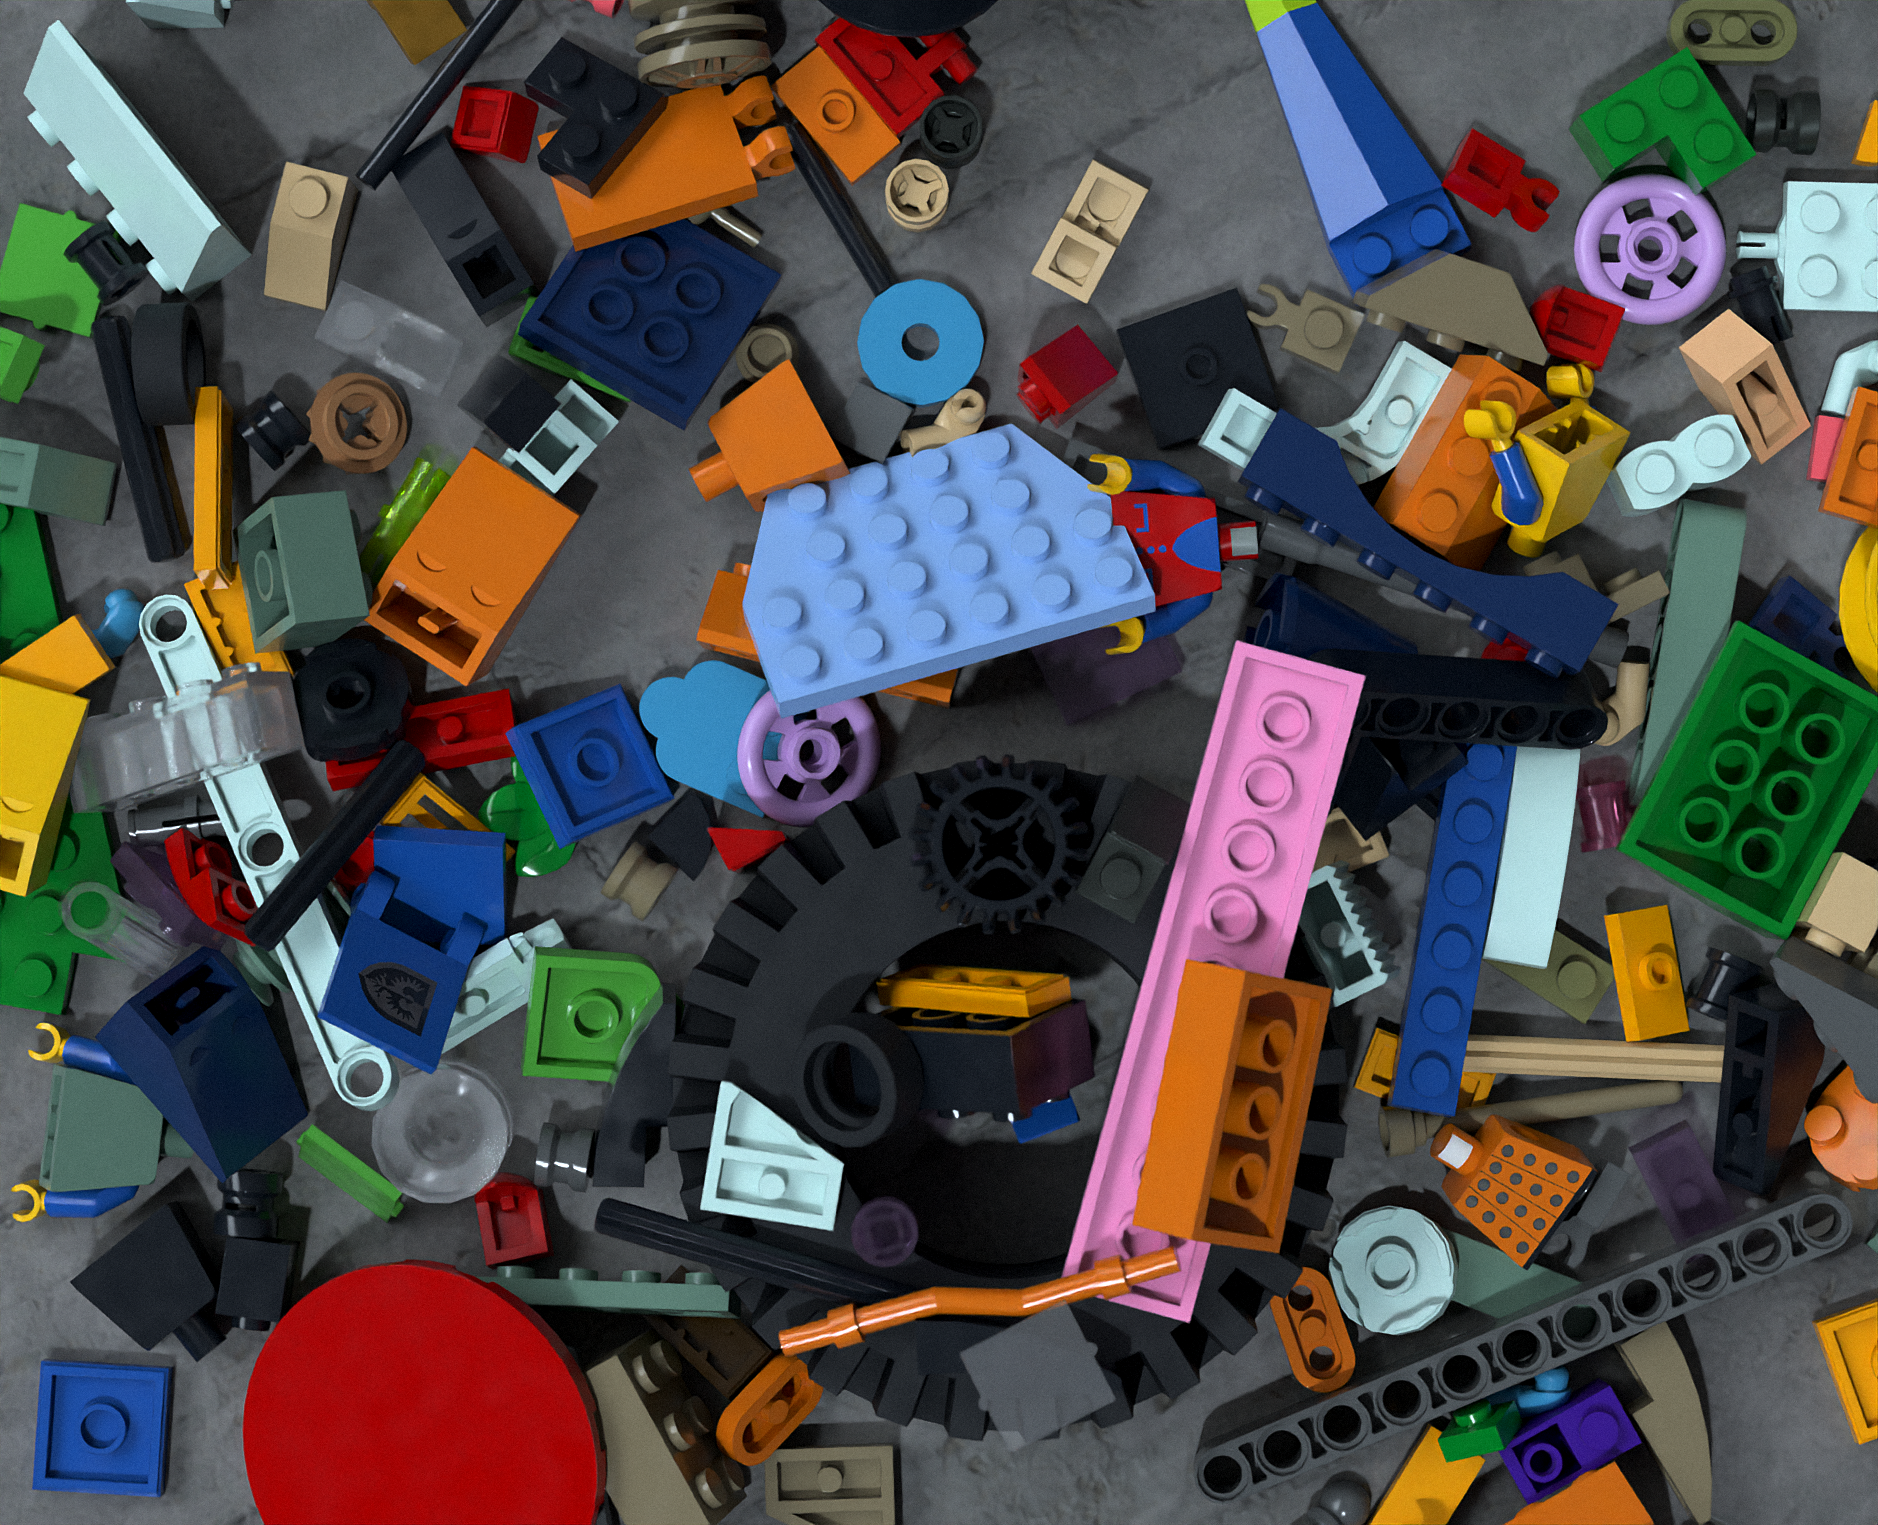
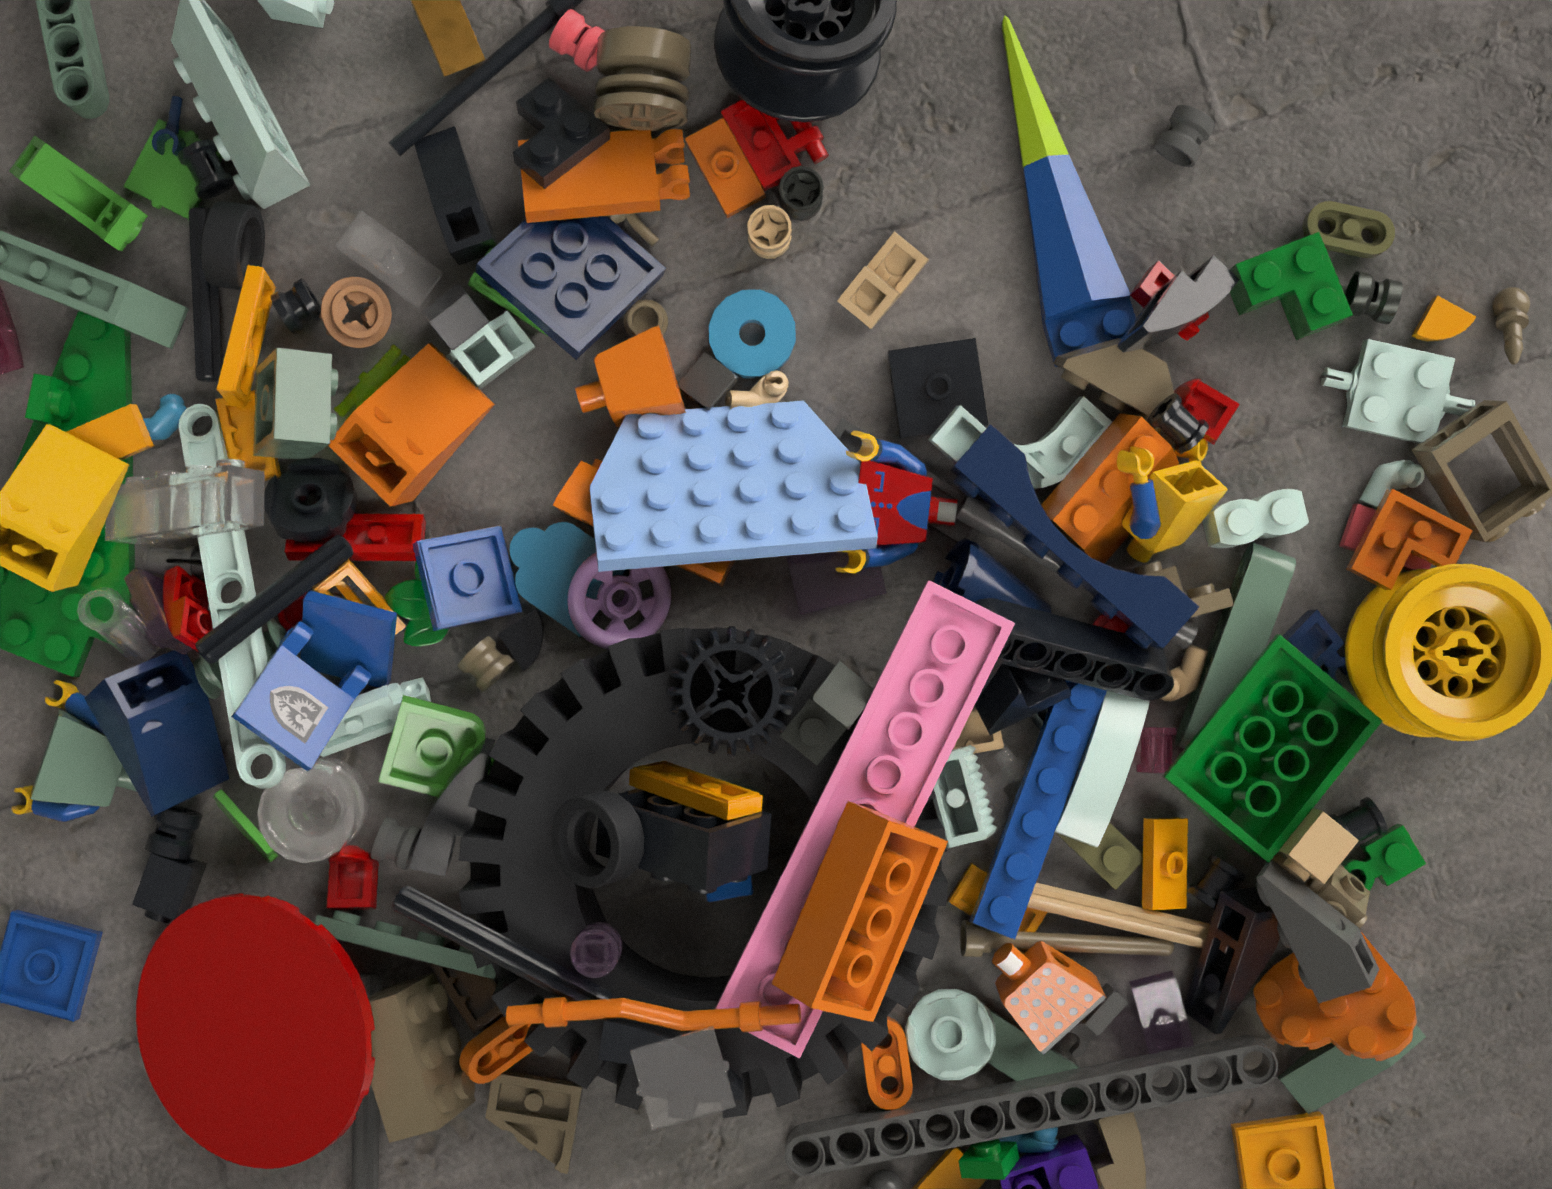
camera: 10 degrees right, 0 degrees up
(43, 214) = (171, 129): none -> dark blue hand
(158, 1284) = (99, 875): black torso -> none
(308, 235) = (348, 175): tan slope -> none
(494, 124) = (492, 128): red slope -> none
(745, 847) = (559, 655): red slope -> none
(767, 1166) = (523, 887): light aqua wing -> none
(839, 211) = (714, 232): black bar -> none
(1063, 377) = (844, 375): red slope -> none
(1316, 329) = (1023, 378): dark tan plate -> none
(1511, 188) = (1179, 304): none -> slope
(1541, 355) = (1178, 423): none -> black bush
(1703, 250) = (1281, 334): lavender plate -> none
(1746, 380) = (1314, 465): light nougat slope -> none
(1761, 304) = (1332, 422): black pin -> none

